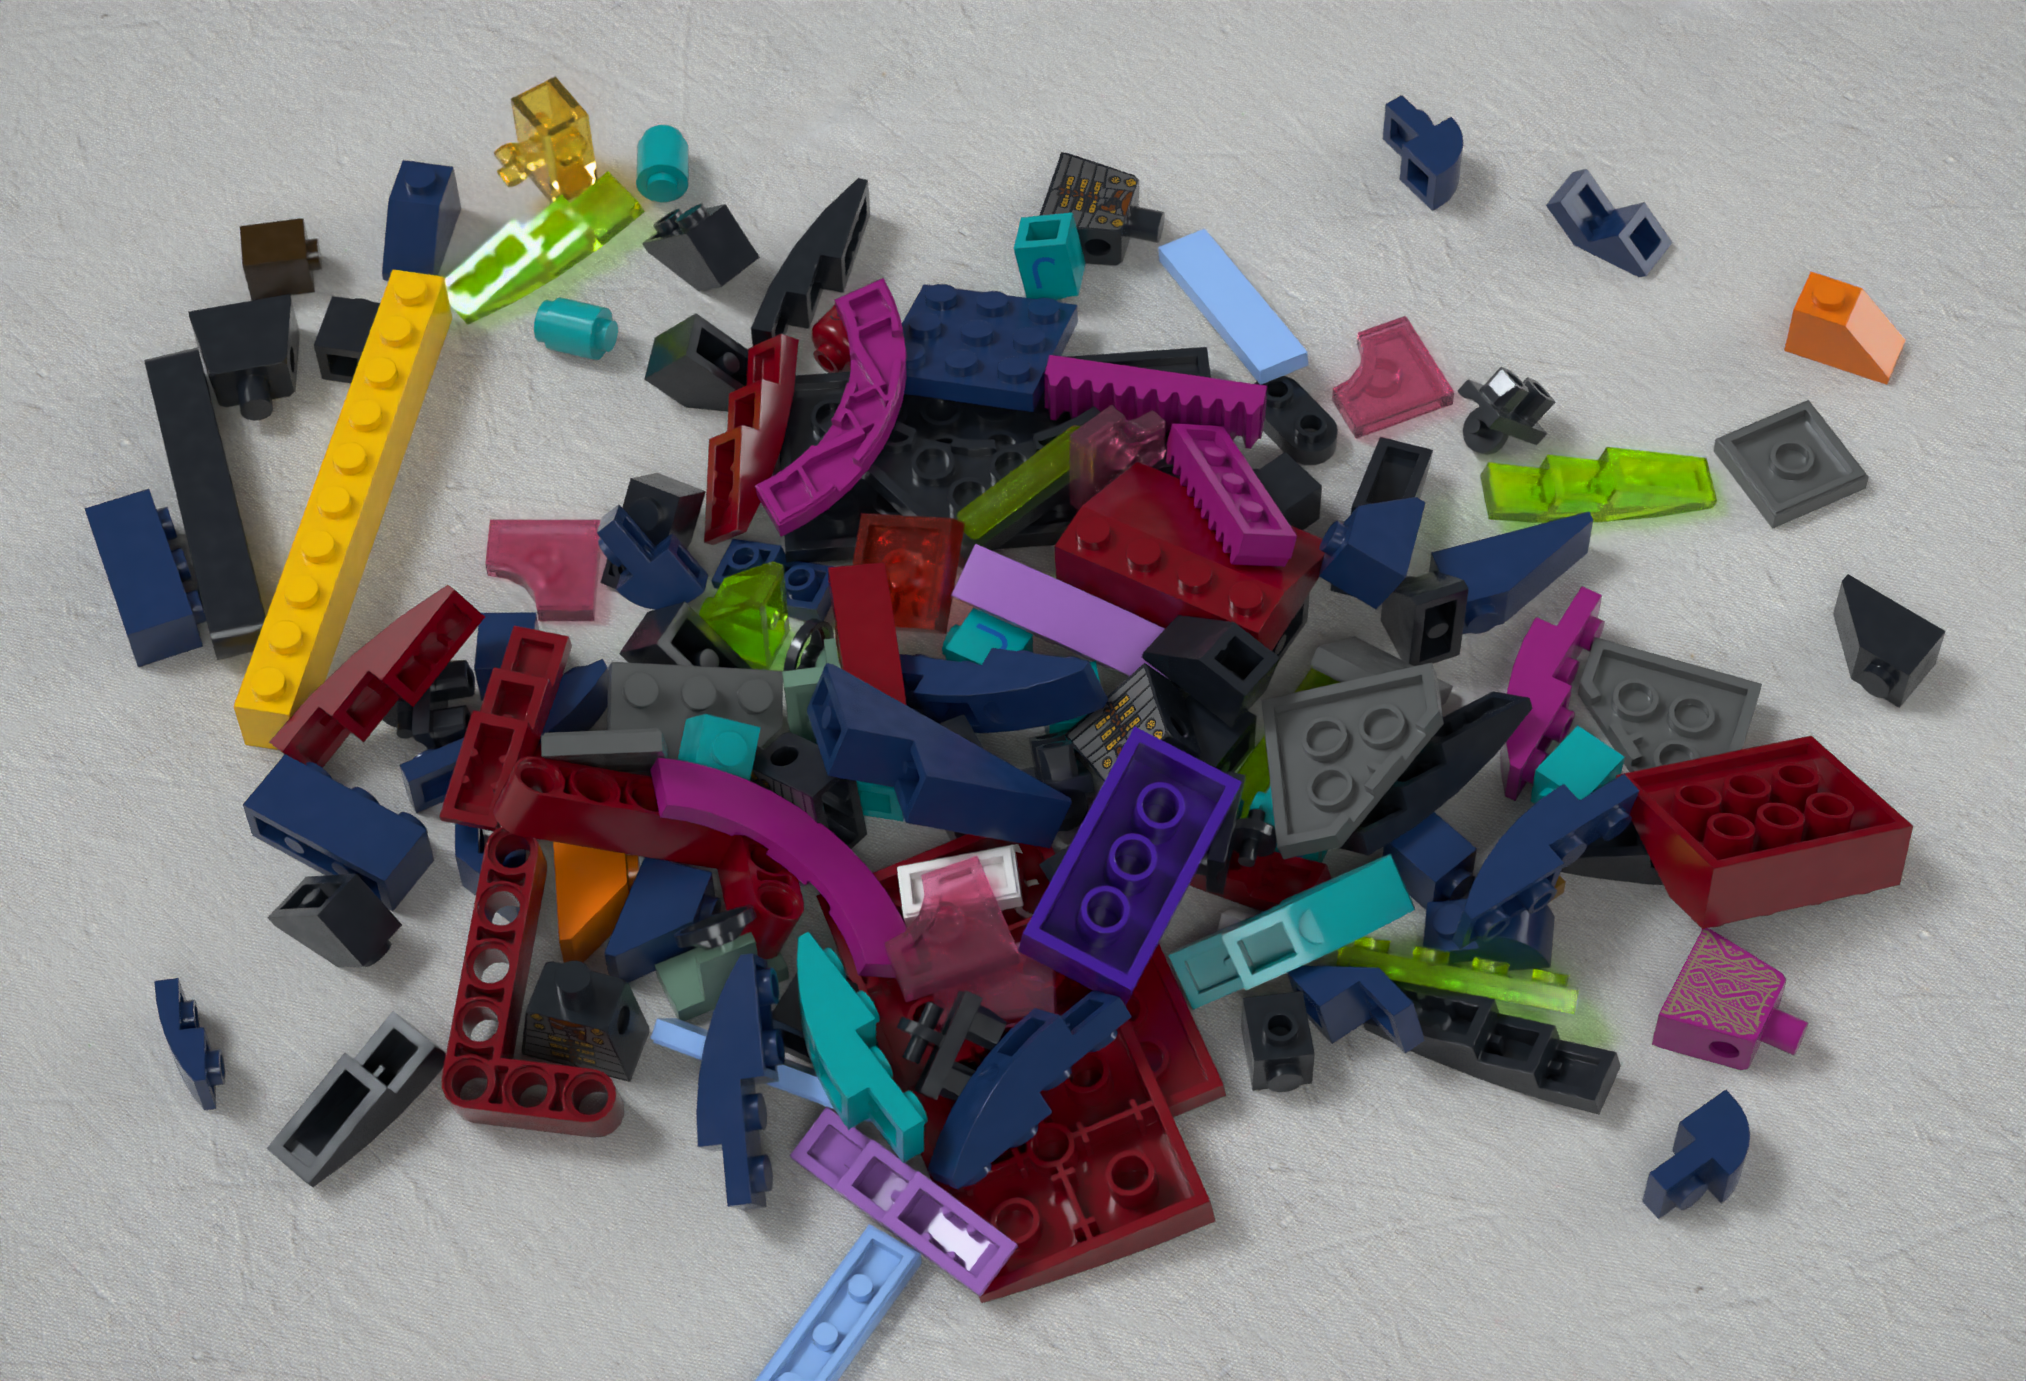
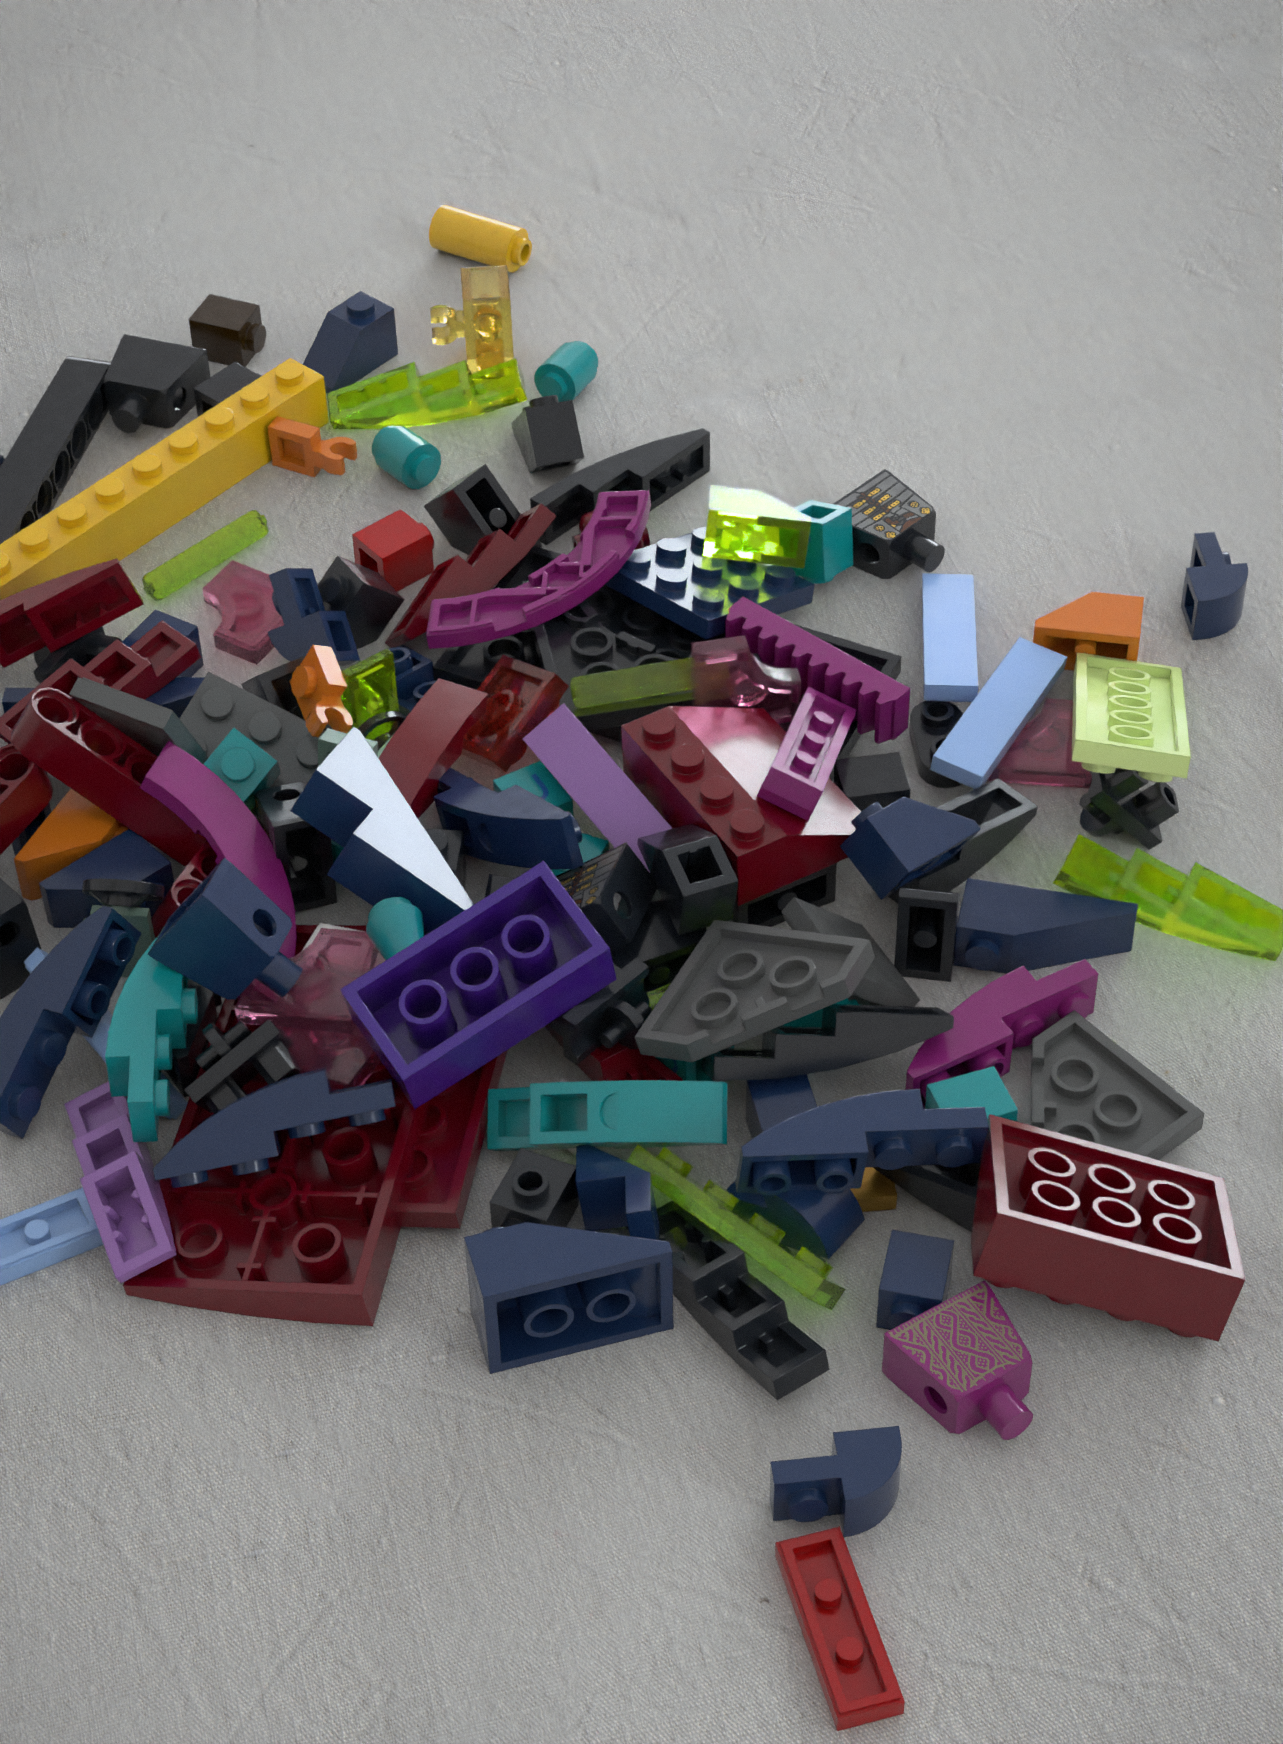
camera: 30 degrees right, 10 degrees down
(455, 524) = (205, 555): none -> clear neon green axle
(456, 40) = (479, 238): none -> yellow brick
(466, 364) = (301, 450): none -> orange plate
(648, 439) = (395, 549): none -> red brick
(731, 634) = (318, 691): none -> orange plate
(876, 930) = (228, 937): none -> dark blue torso
(994, 273) = (754, 528): none -> clear neon green slope
(1012, 853) = (394, 925): none -> teal cone
(1337, 369) = (998, 713): none -> light blue tile
(1359, 247) = (1093, 625): none -> orange slope
(1370, 1112) = (564, 1291): none -> dark blue slope
(1474, 329) = (1129, 718): none -> yellowish green plate
(1638, 955) = (913, 1277): none -> dark blue brick
(1775, 1281) = (839, 1629): none -> red tile

